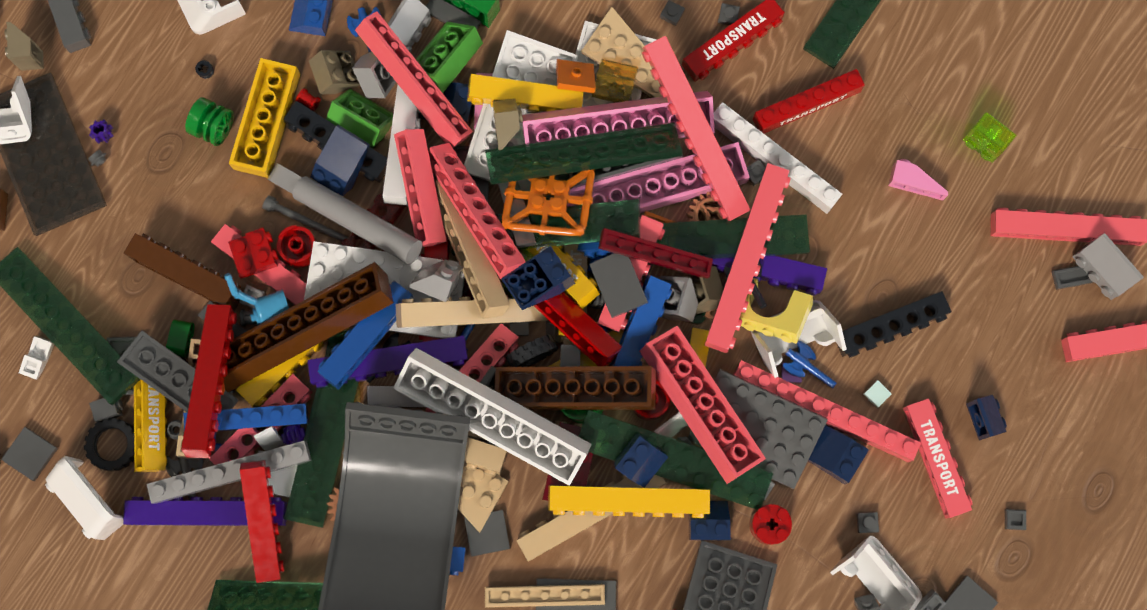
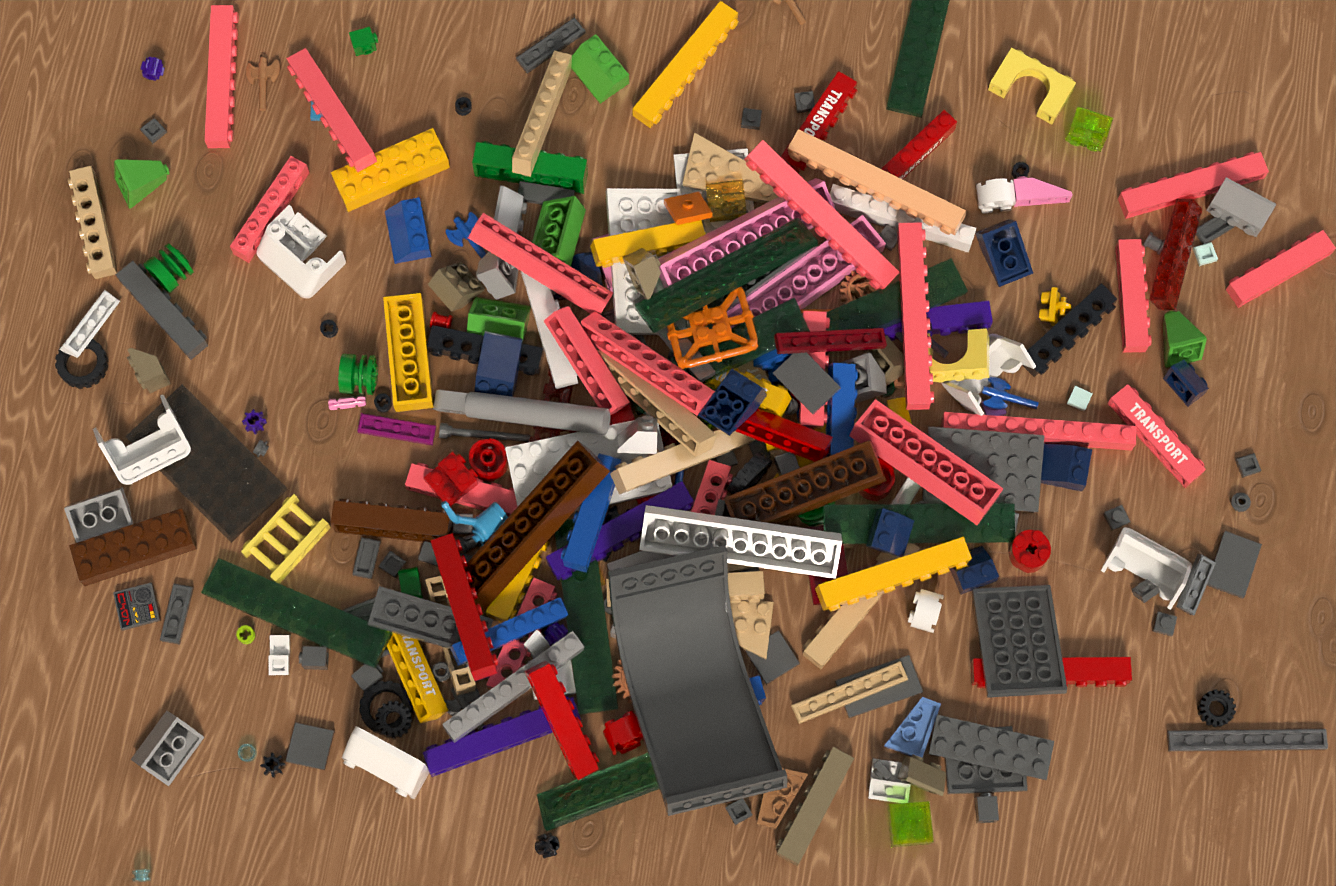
camera: 20 degrees left, 5 degrees down
(16, 332) = (250, 638): none -> lime bush
(65, 373) = (314, 658): none -> dark grey brick
(84, 271) = (292, 557): none -> light yellow fence
(101, 451) = (399, 730): none -> black tyre
(152, 296) = (366, 558): none -> dark grey tile
(173, 310) = (392, 564): none -> dark grey tile
(192, 144) = (347, 402): none -> bright pink axle
(220, 152) = (379, 398): none -> black bush
(228, 186) = (396, 429): none -> magenta tile
(313, 554) = (623, 733): none -> red brick
(648, 545) = (926, 610): none -> white brick
(763, 116) = (876, 182): none -> light nougat brick
(861, 226) = (1004, 252): none -> dark blue slope
(874, 168) = (996, 195): none -> white brick
(889, 289) = (1053, 298): none -> yellow hips
(912, 149) = (1020, 165): none -> black bush
(946, 51) = (1018, 65): none -> light yellow arch
(967, 313) = (1132, 295): none -> coral brick
(988, 553) = (1238, 507): none -> dark grey plate
(998, 374) = (1181, 339): none -> bright green slope
(1009, 270) = (1154, 243): none -> dark grey bush
(1025, 289) = (1175, 254): none -> clear red brick
(1054, 298) = (1205, 254): none -> light aqua tile

